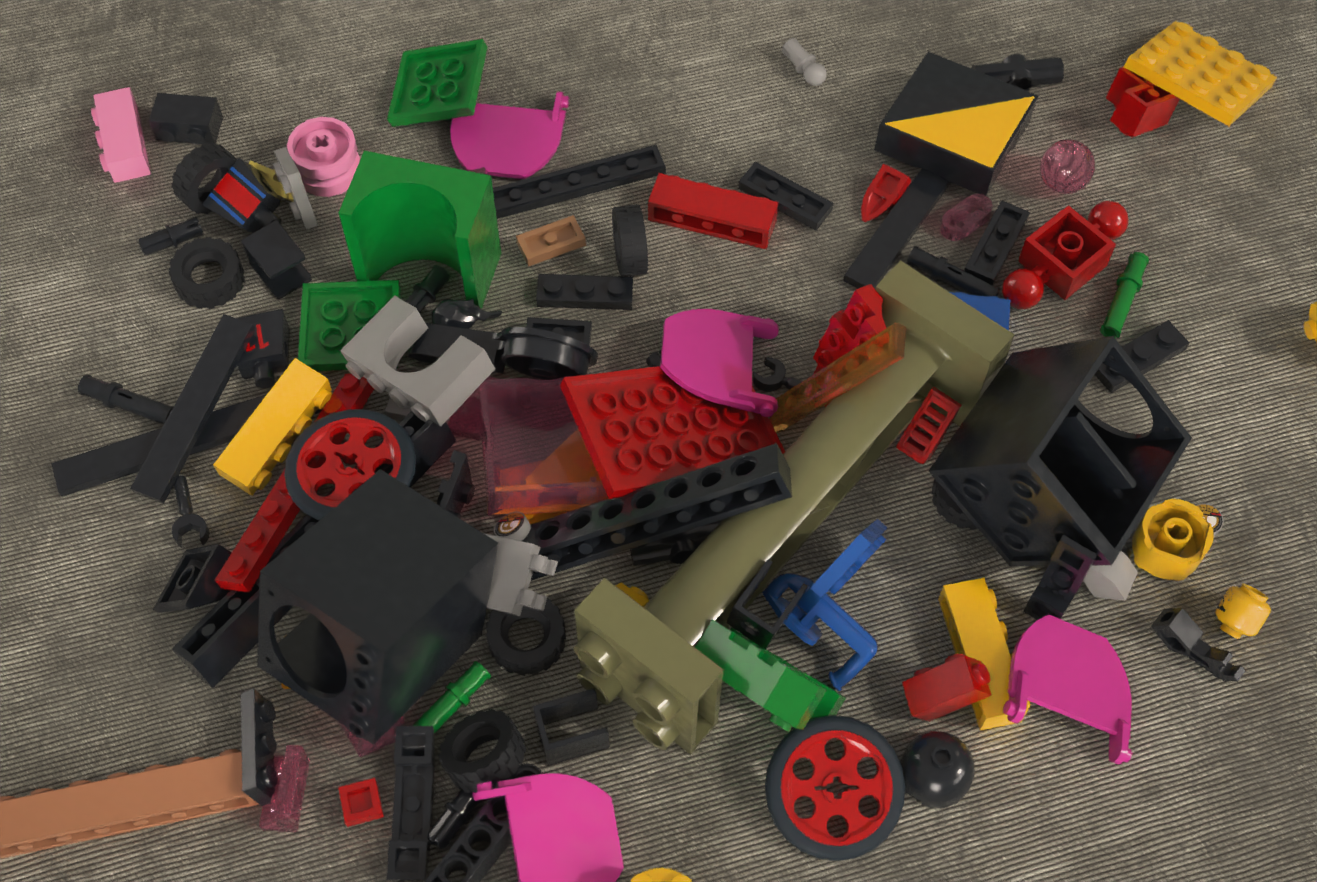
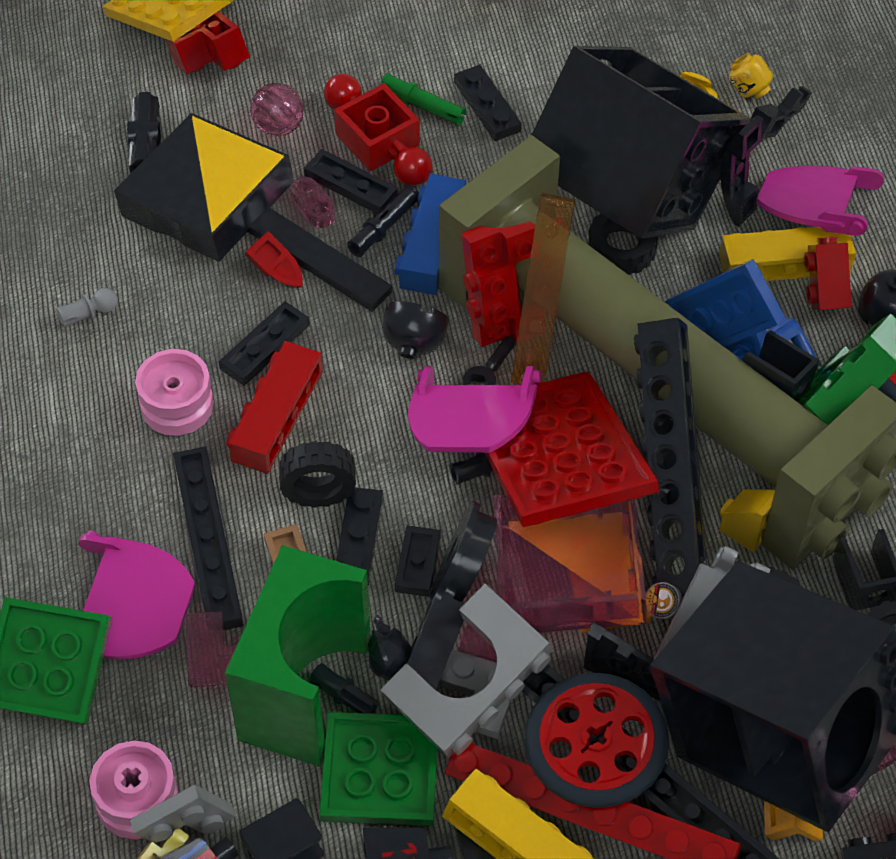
camera: 85 degrees left, 5 degrees down
(712, 130) = (174, 392): none -> bright pink wheel
(812, 304) = (412, 329): none -> black cylinder

